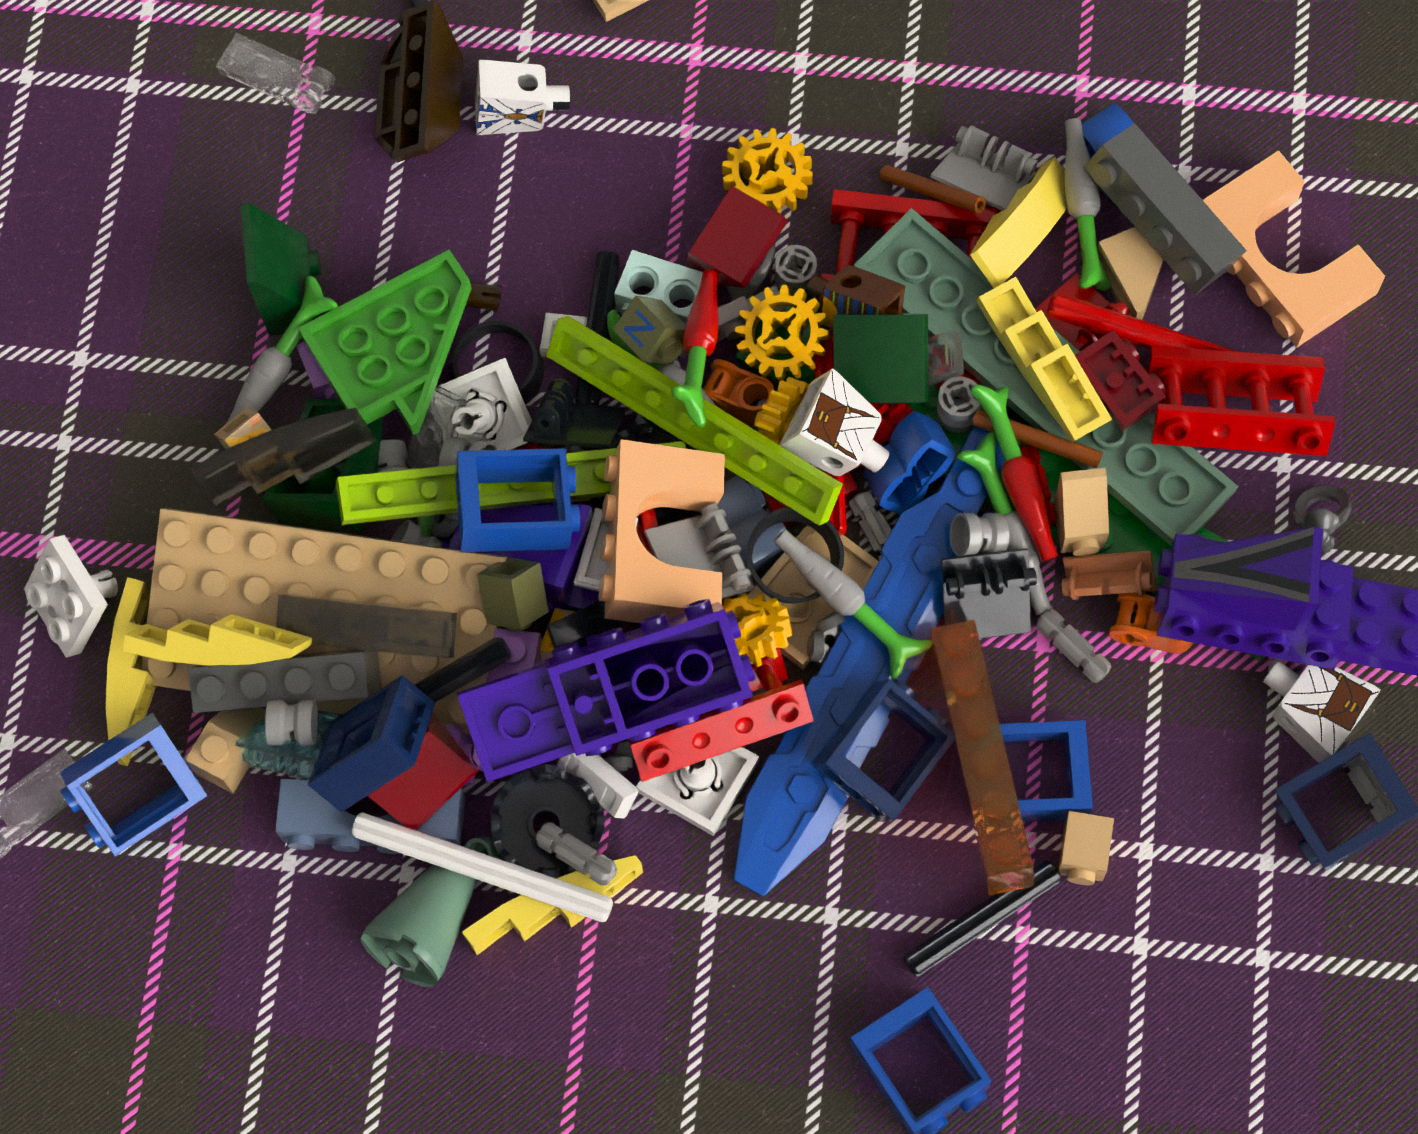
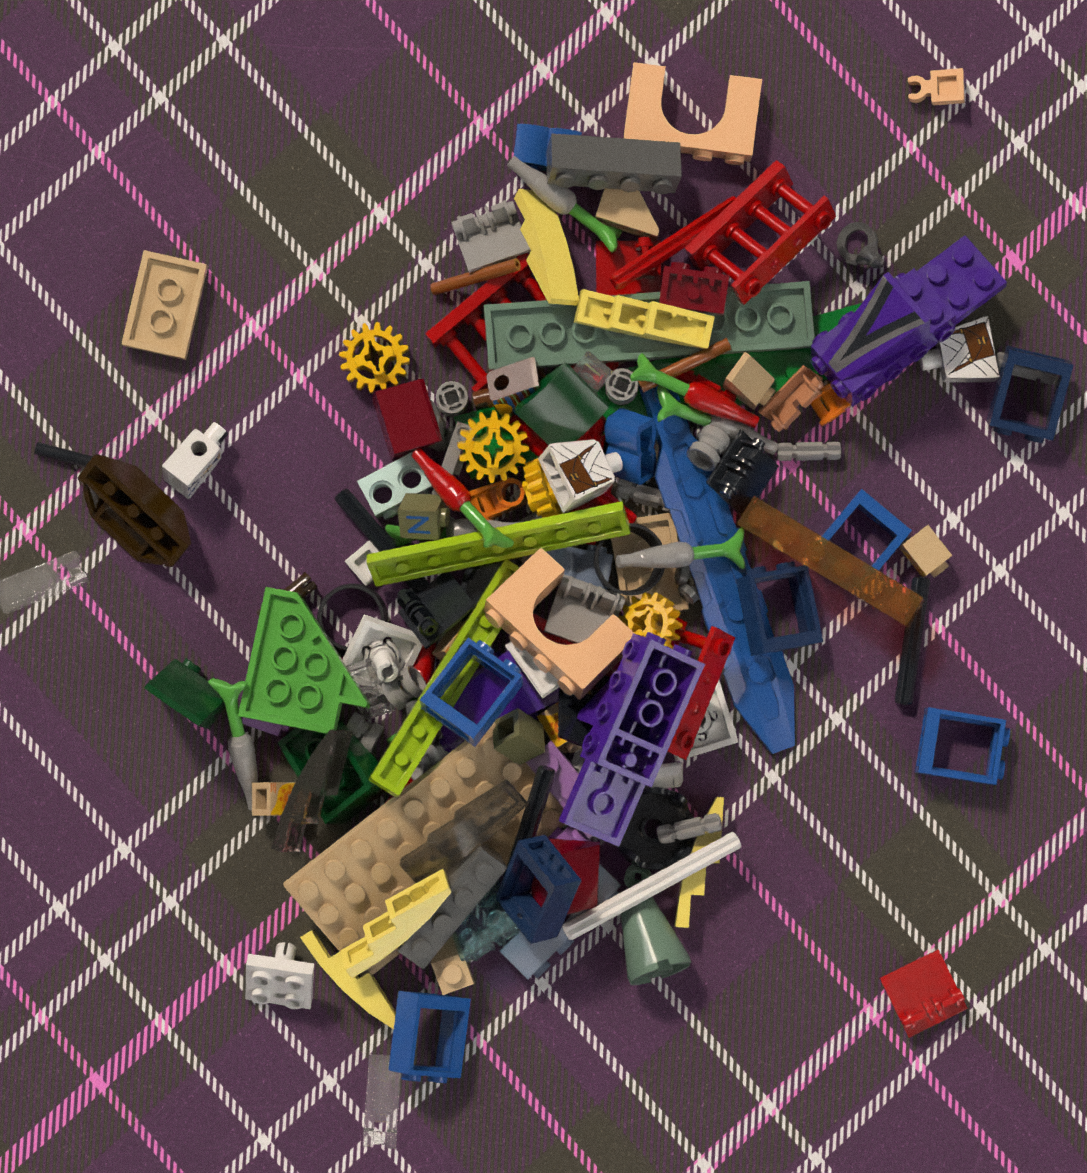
camera: 50 degrees left, 15 degrees up
(291, 722) = (482, 922): light grey wheel -> none

